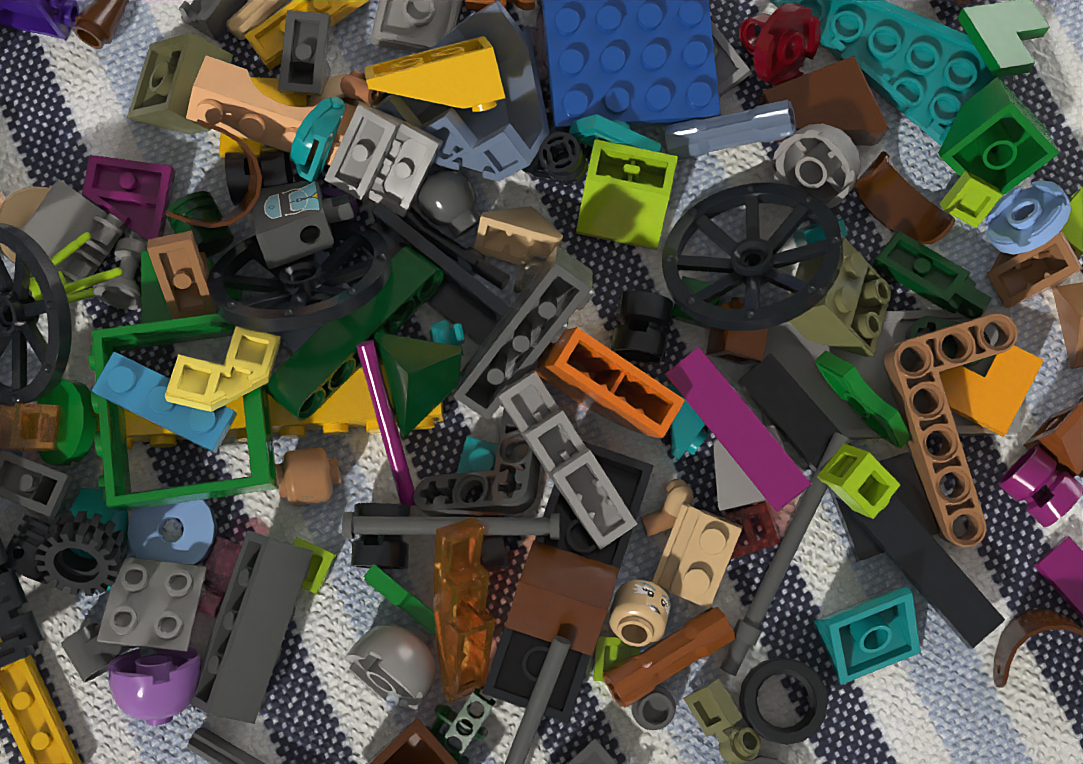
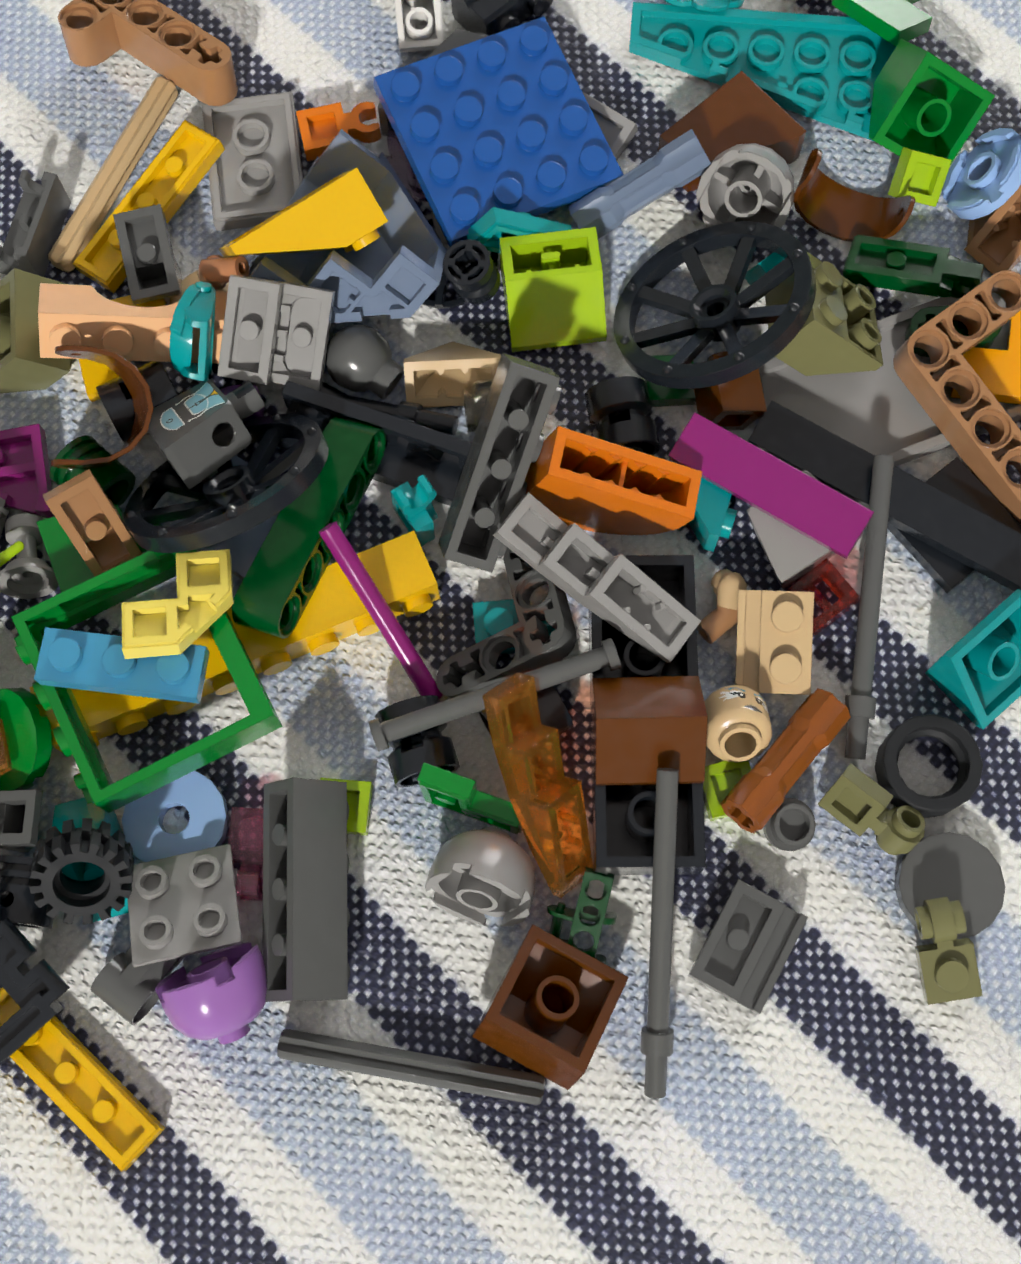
camera: 15 degrees left, 5 degrees down
(307, 476) = (310, 704): medium nougat head -> none
(416, 375) = (396, 548): dark green slope -> none
(783, 43) = (663, 81): dark red tile -> none
(859, 480) = (921, 494): lime brick -> none
(862, 399) = (909, 424): green tile -> none

